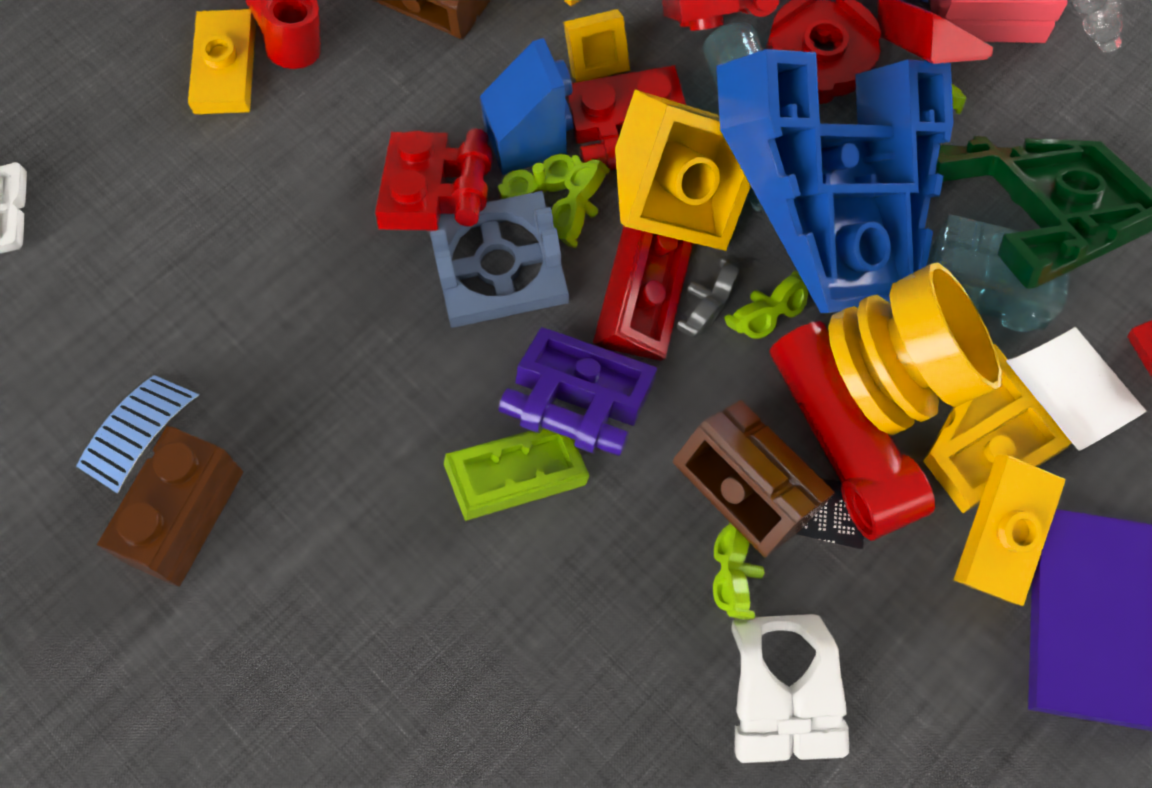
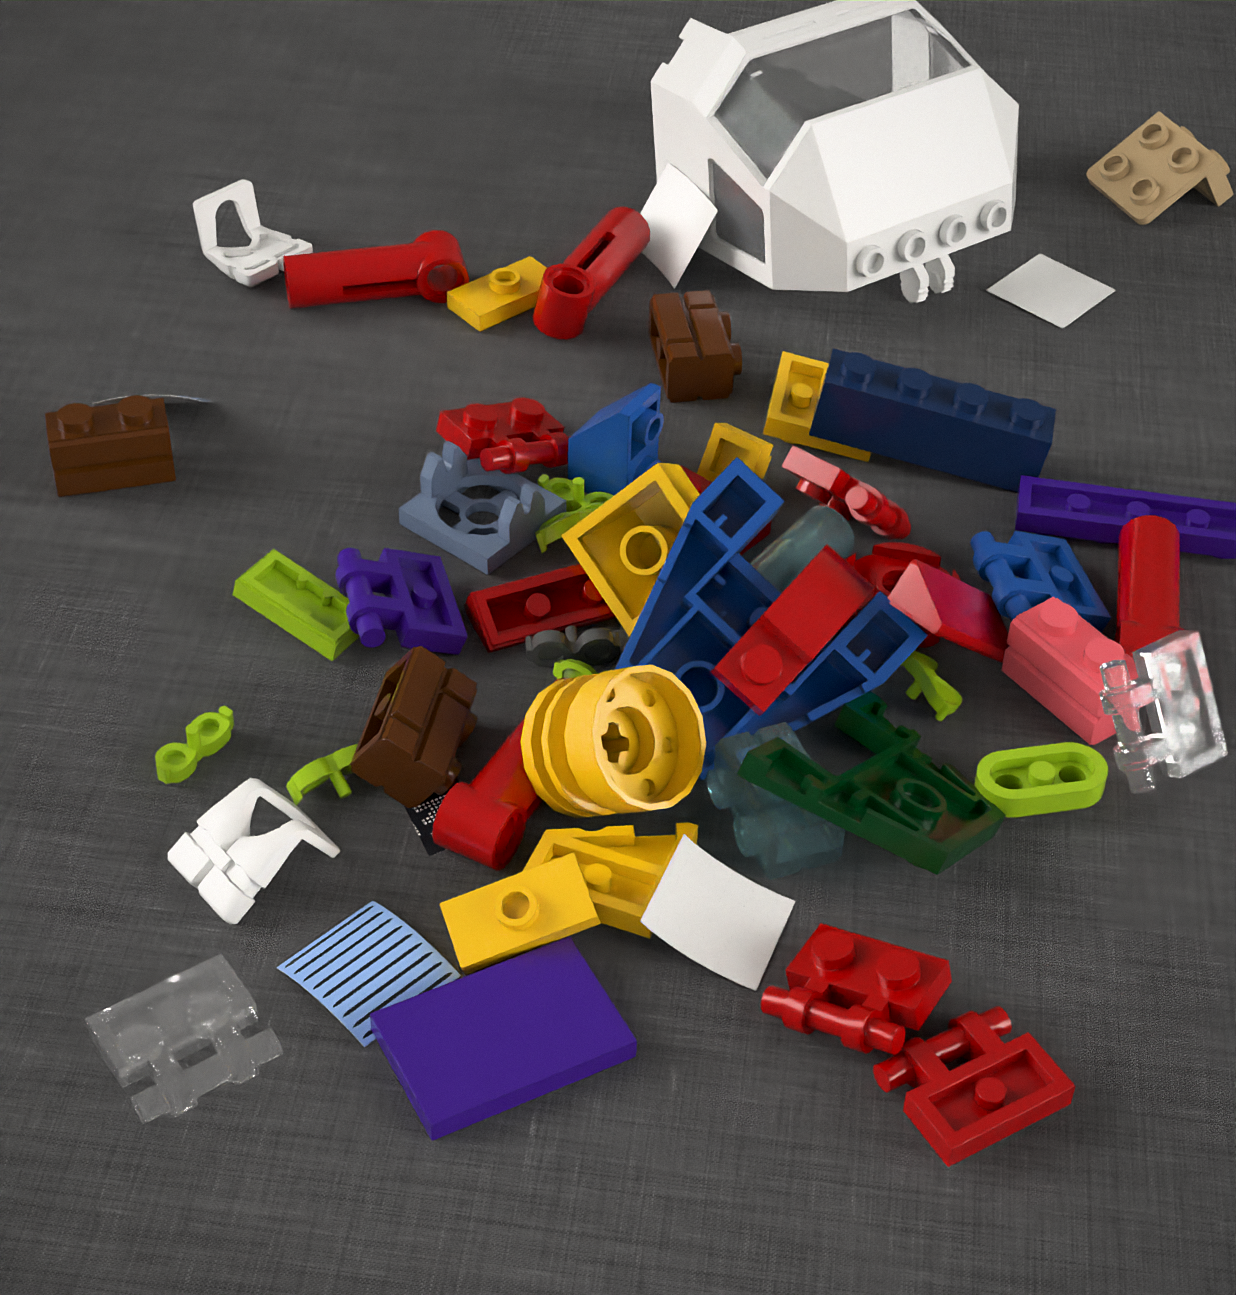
camera: 50 degrees right, 25 degrees down
(137, 101) = (377, 272): none -> red piece
(611, 644) = (204, 738): none -> lime piece
(895, 129) = (793, 630): none -> red arch
(961, 673) = (368, 966): none -> light blue sticker
(1079, 94) = (1042, 778): none -> lime plate

